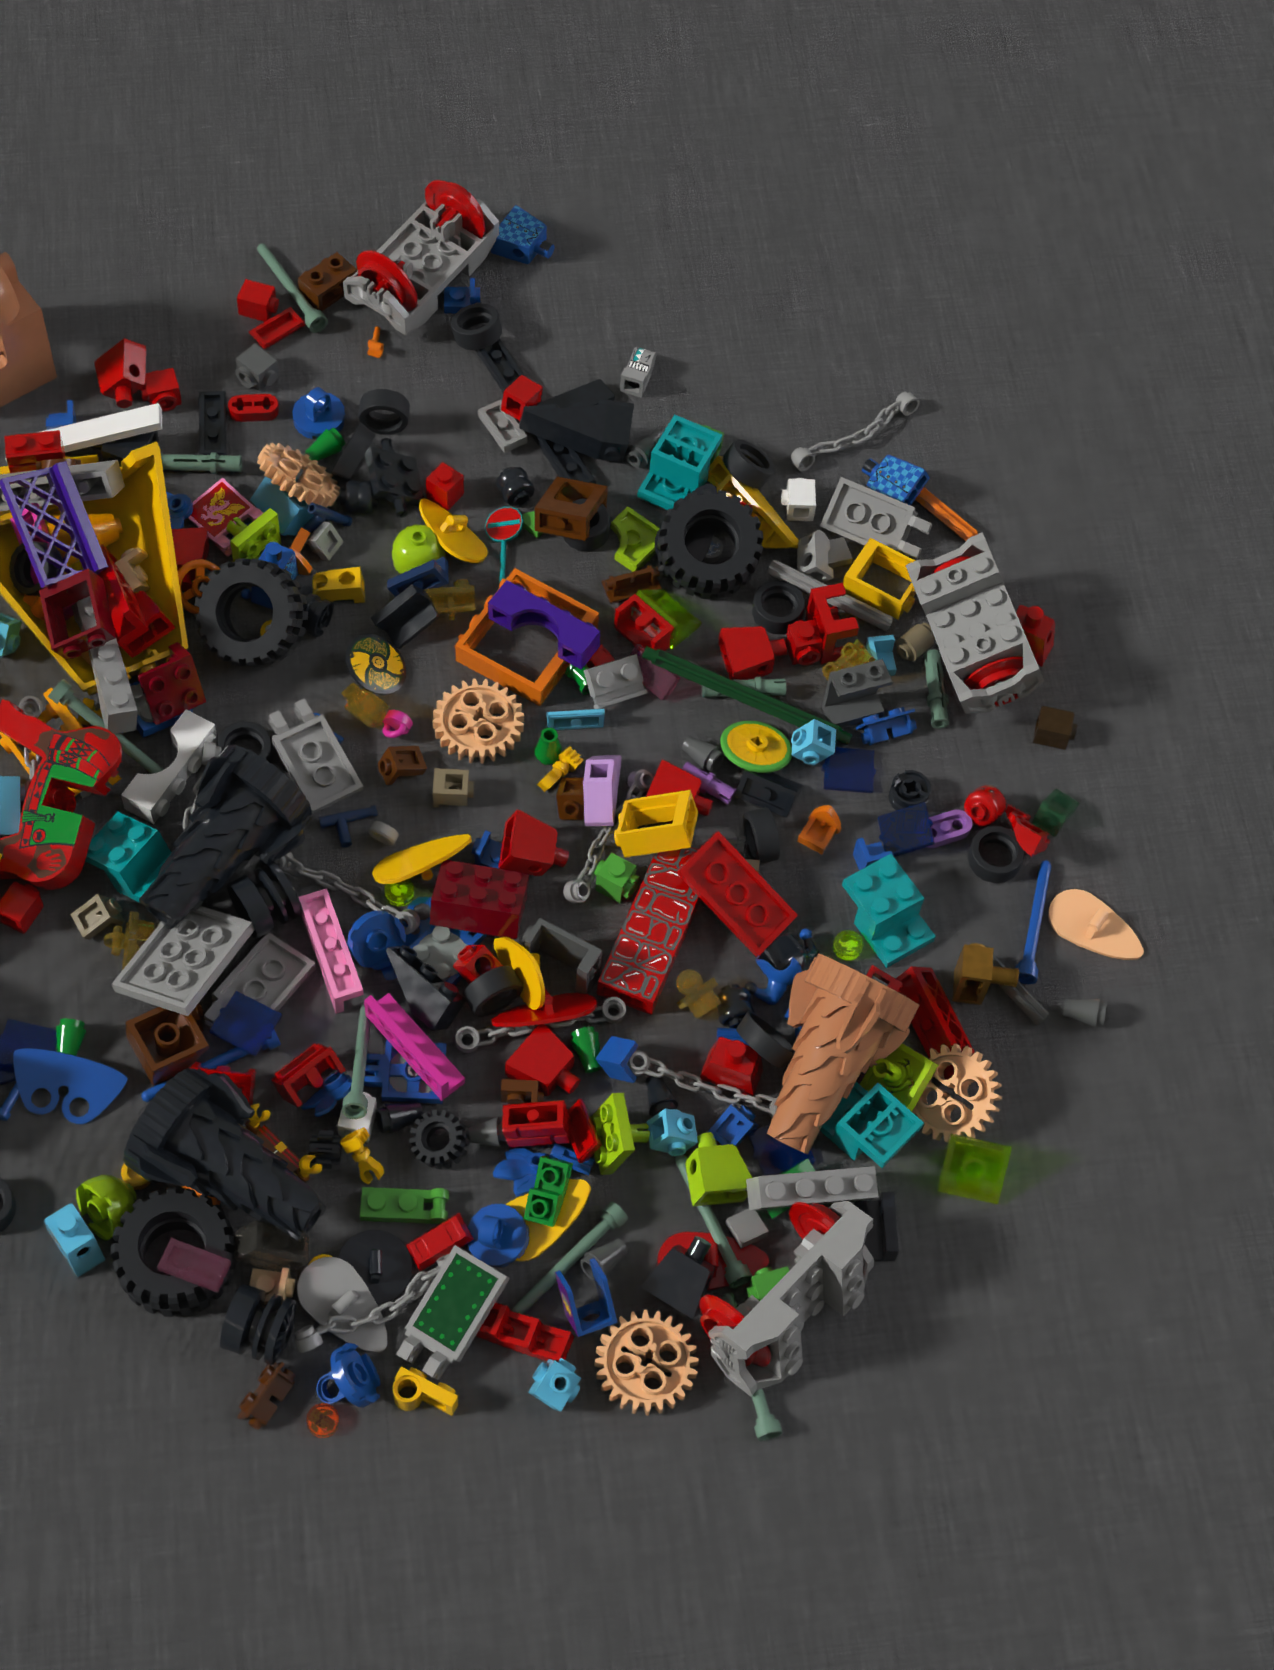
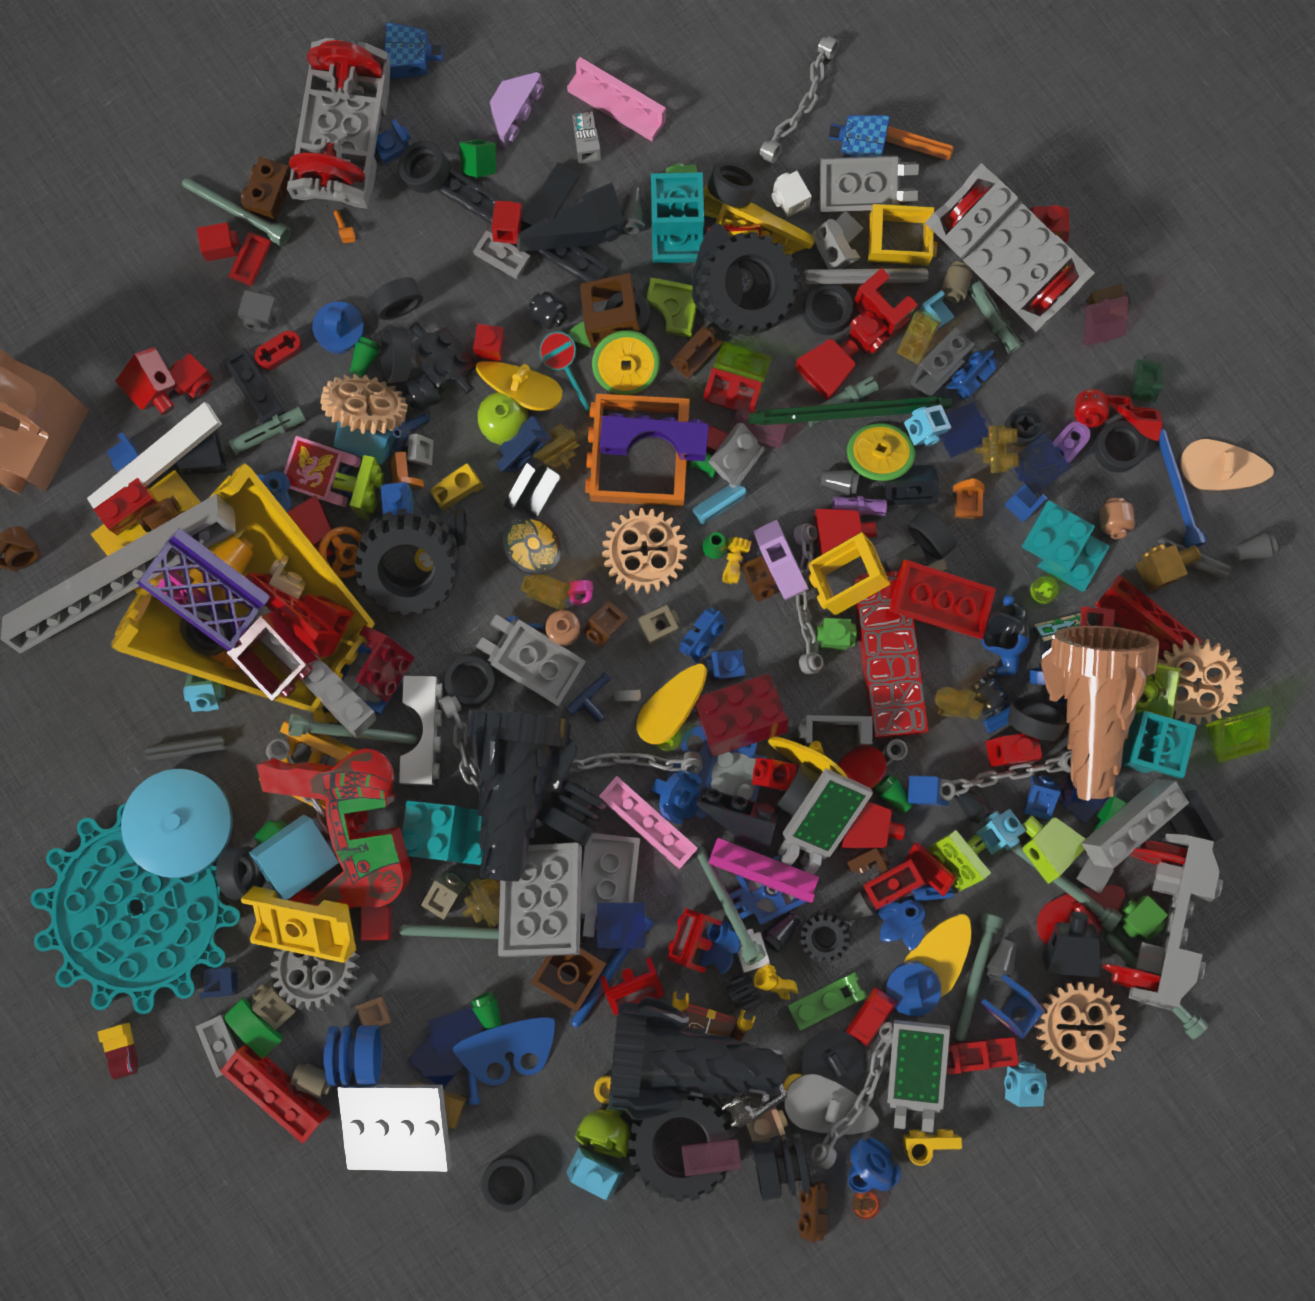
camera: 25 degrees left, 20 degrees up
(78, 950) = (449, 931): none -> sand green piece
(359, 744) = (563, 627): none -> nougat head
(491, 820) = (697, 644): none -> blue hinge
(501, 1021) = (823, 819): none -> tile
(530, 343) = (477, 158): none -> green panel
(530, 846) = (752, 644): red torso -> none
(549, 1191) = (938, 937): green slope -> none
(566, 540) = (625, 346): none -> yellow wheel
(589, 316) = (513, 104): none -> lavender slope
(685, 356) = (617, 99): none -> bright pink fence
(869, 796) = (995, 449): none -> clear yellow hips
(956, 913) = (1117, 518): none -> nougat head
(1041, 737) = (1105, 320): none -> clear pink piece

